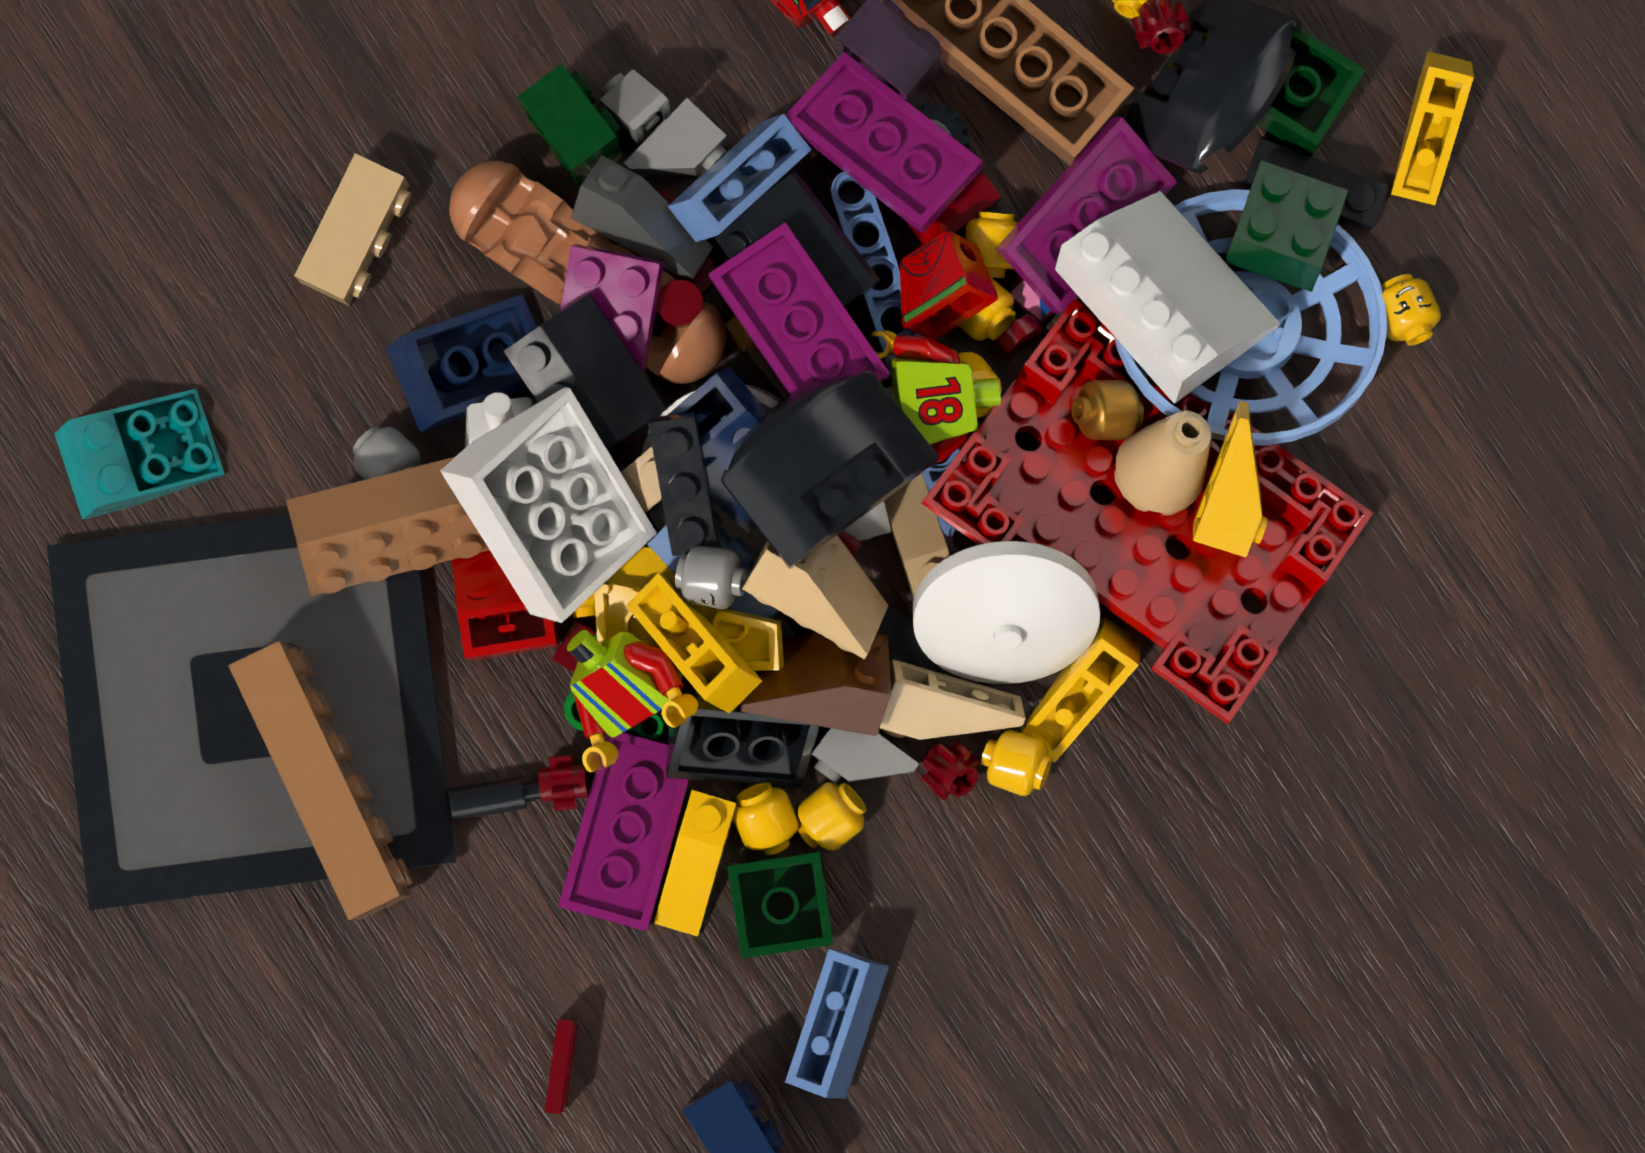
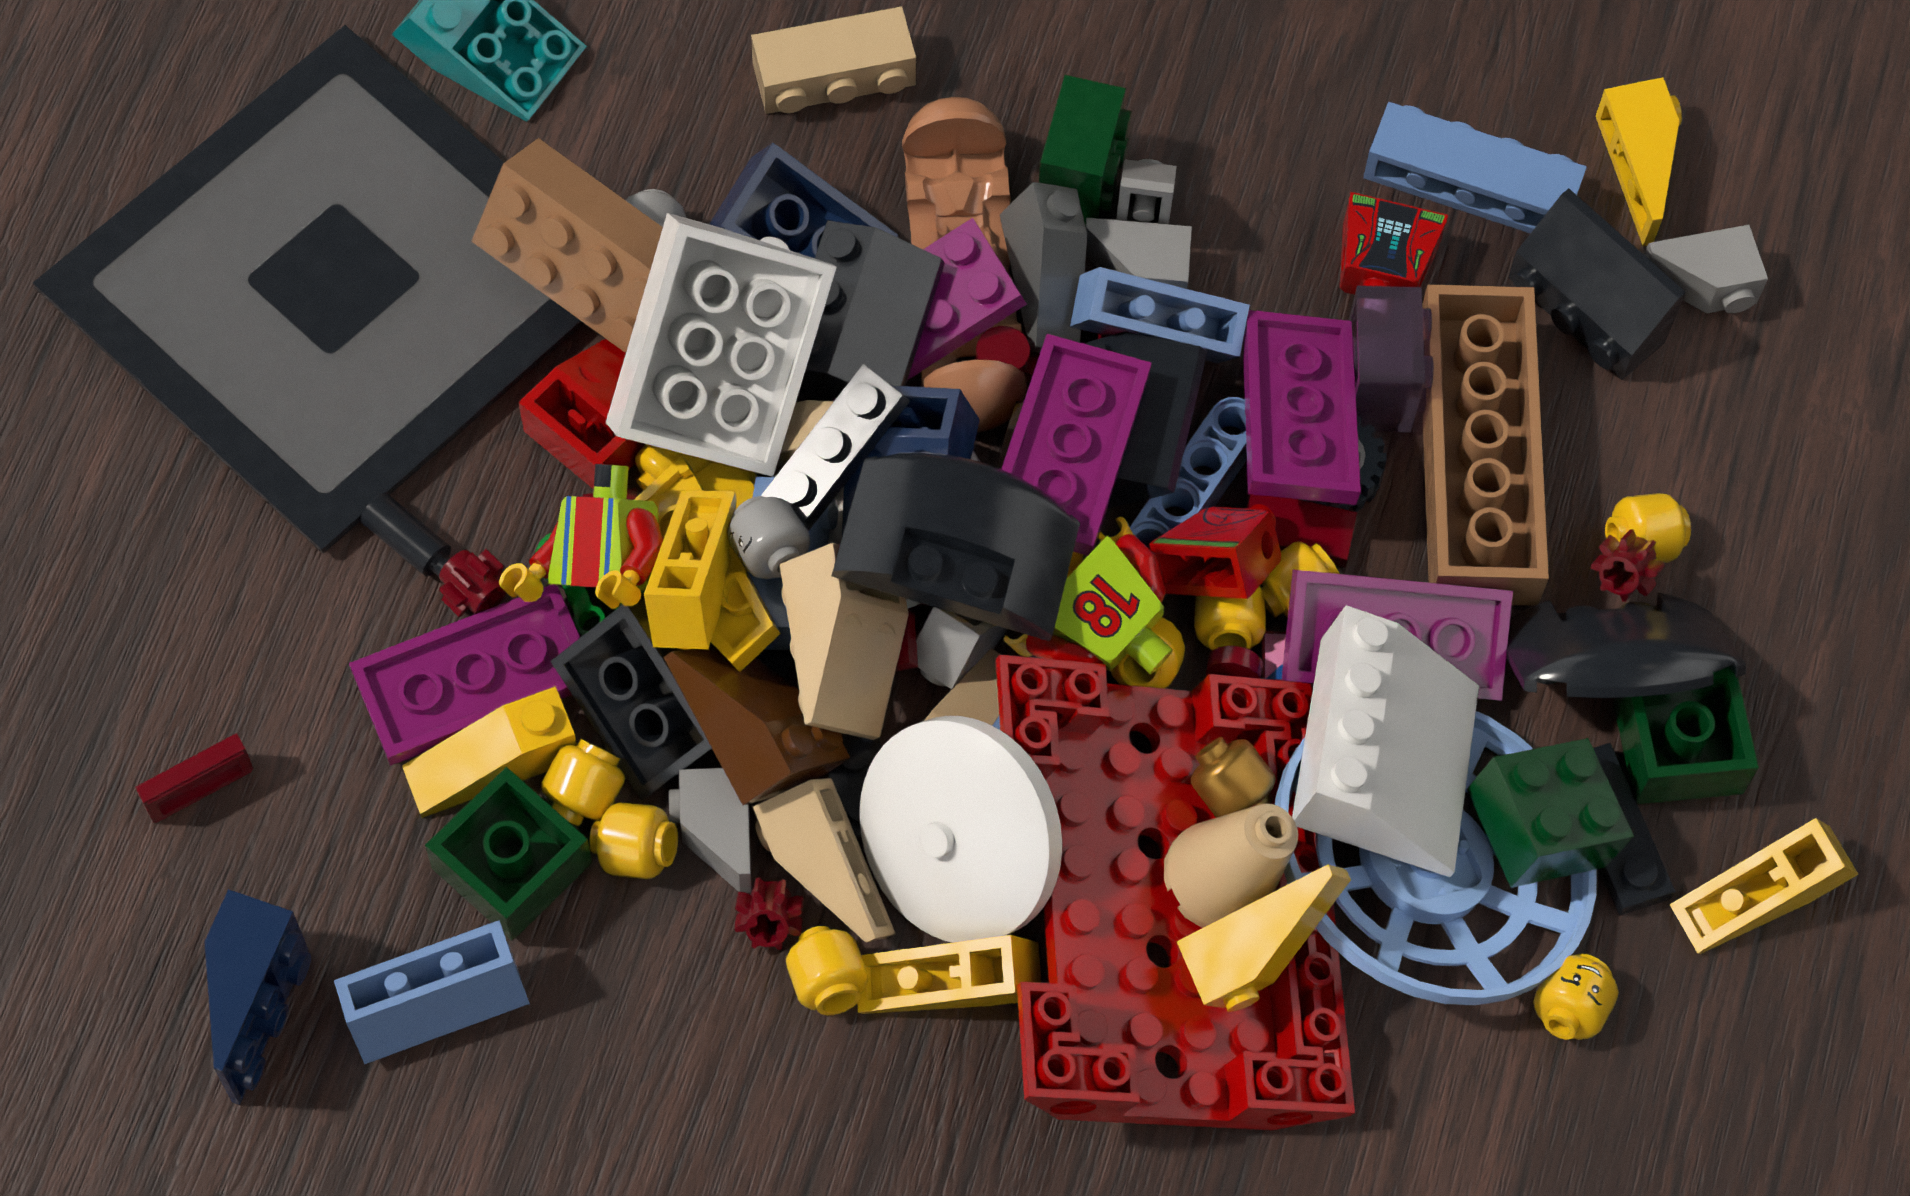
camera: 45 degrees right, 20 degrees down
(320, 780) = (302, 367): medium nougat brick -> none

